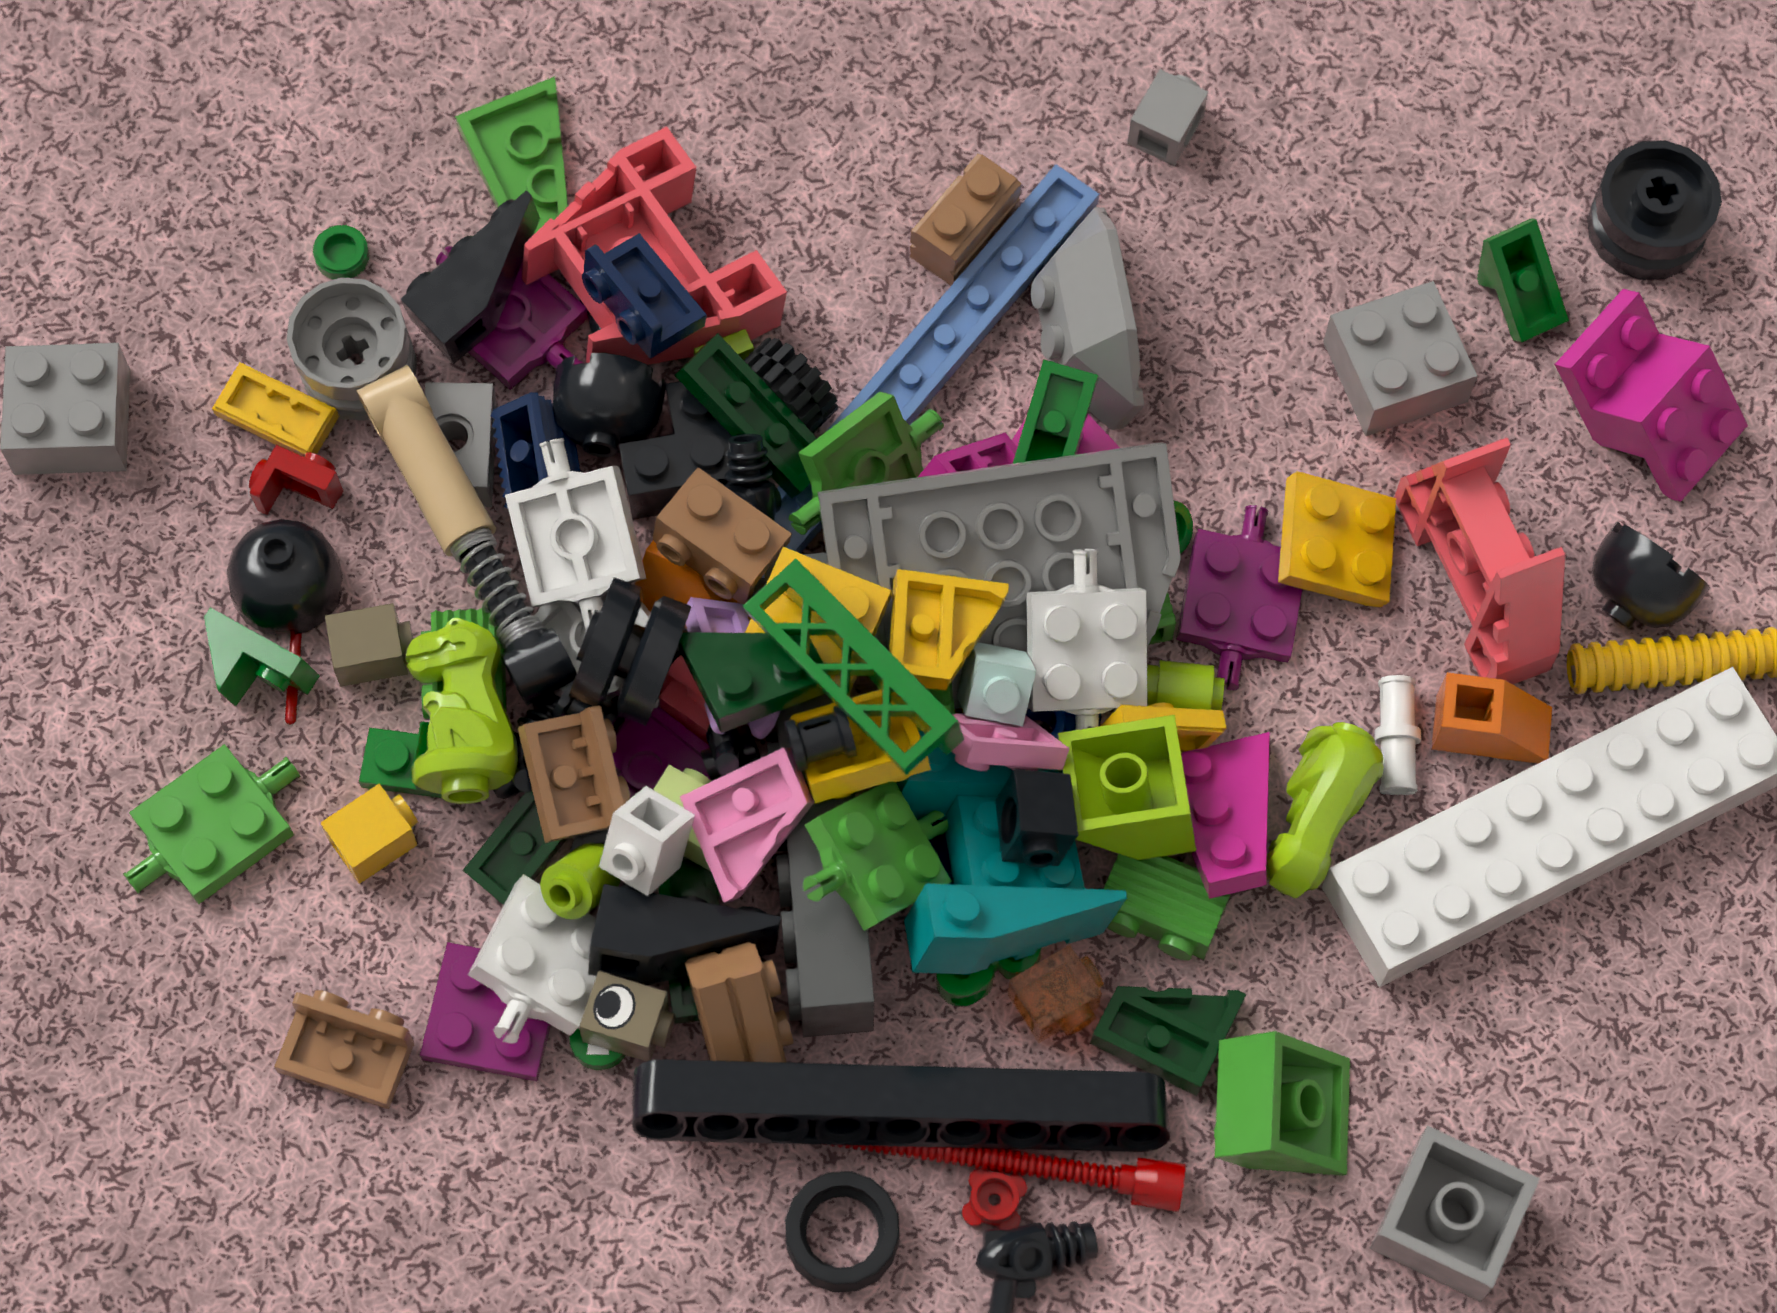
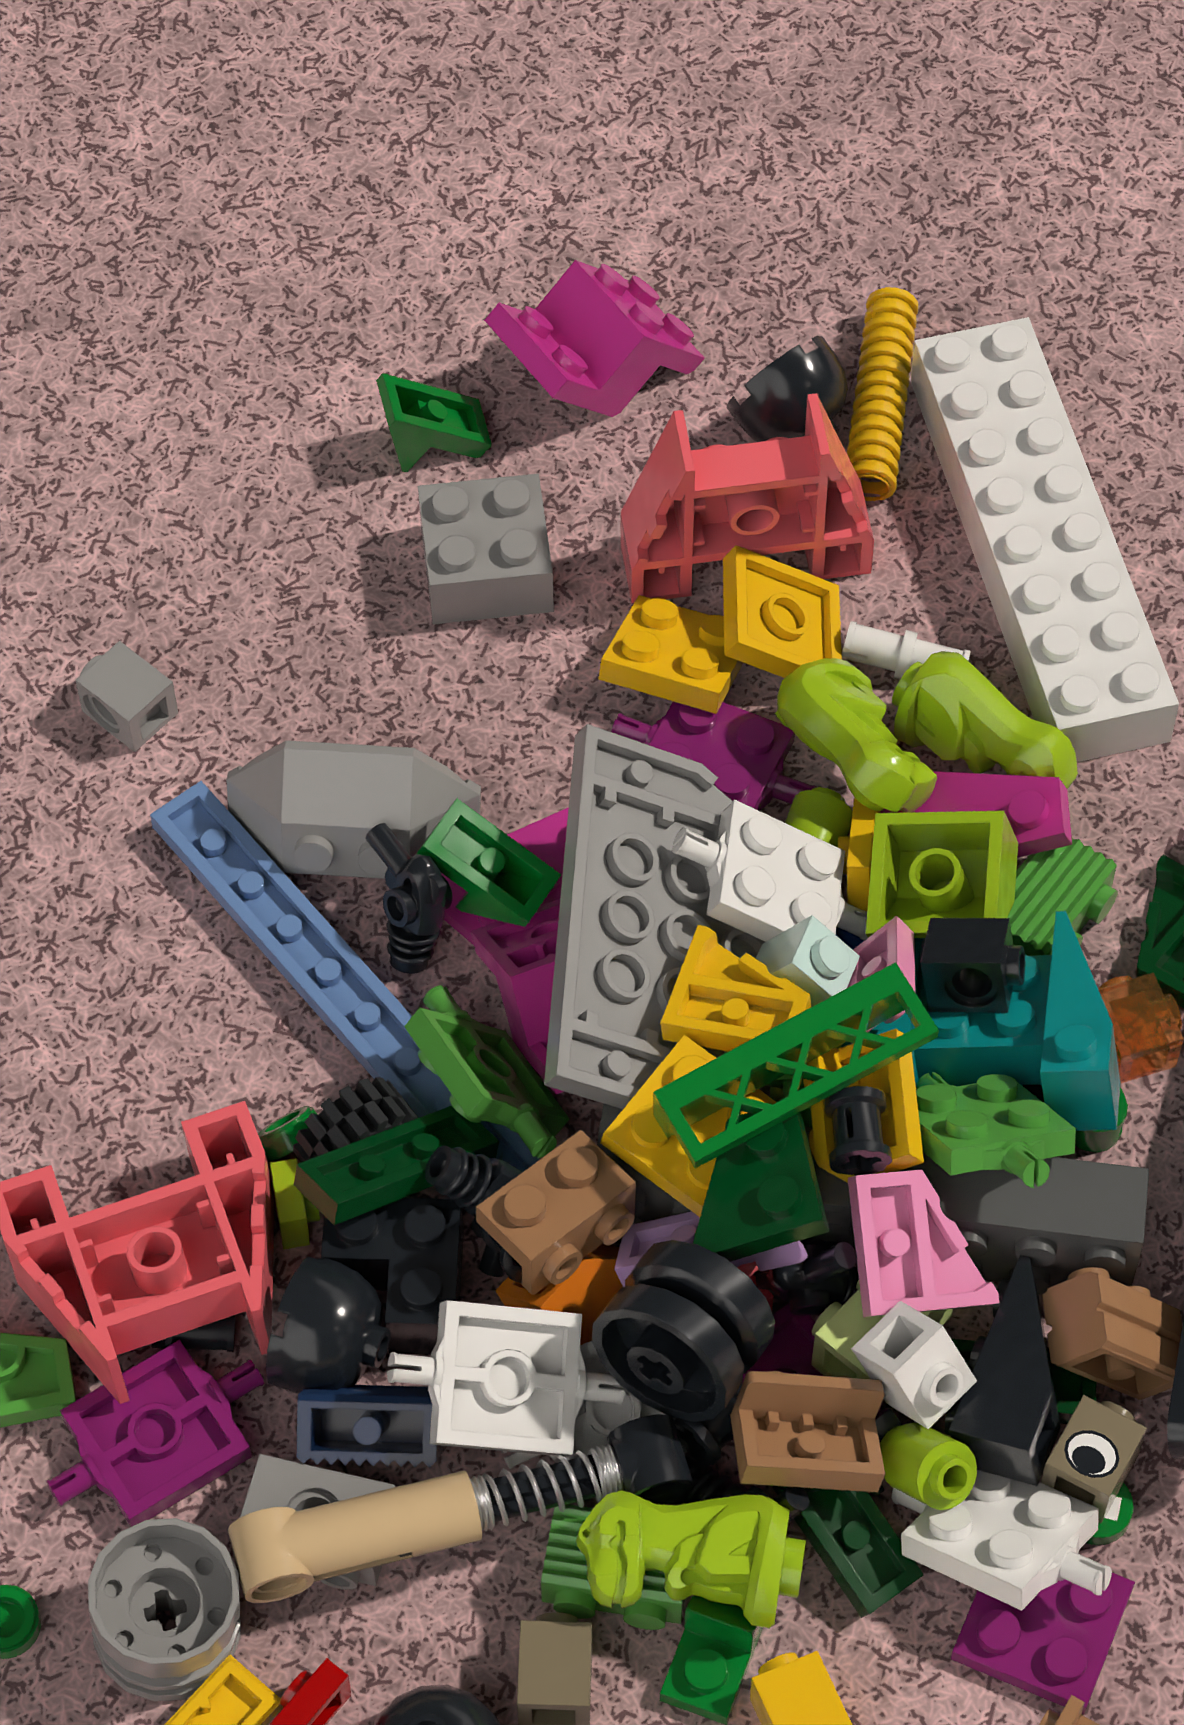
camera: 75 degrees left, 10 degrees down
(469, 290) = (128, 1445): black slope -> none
(642, 295) = (225, 1234): dark blue bracket -> none
(791, 335) = (280, 1135): none -> green tile
(965, 218) = (191, 917): medium nougat brick -> none
(1012, 378) = (412, 904): none -> black piece
(1291, 678) = (840, 718): none -> lime animal
(1392, 617) = (777, 614): none -> yellow plate
(1490, 720) = (911, 572): orange slope -> none
(1654, 210) = (385, 290): black wheel -> none

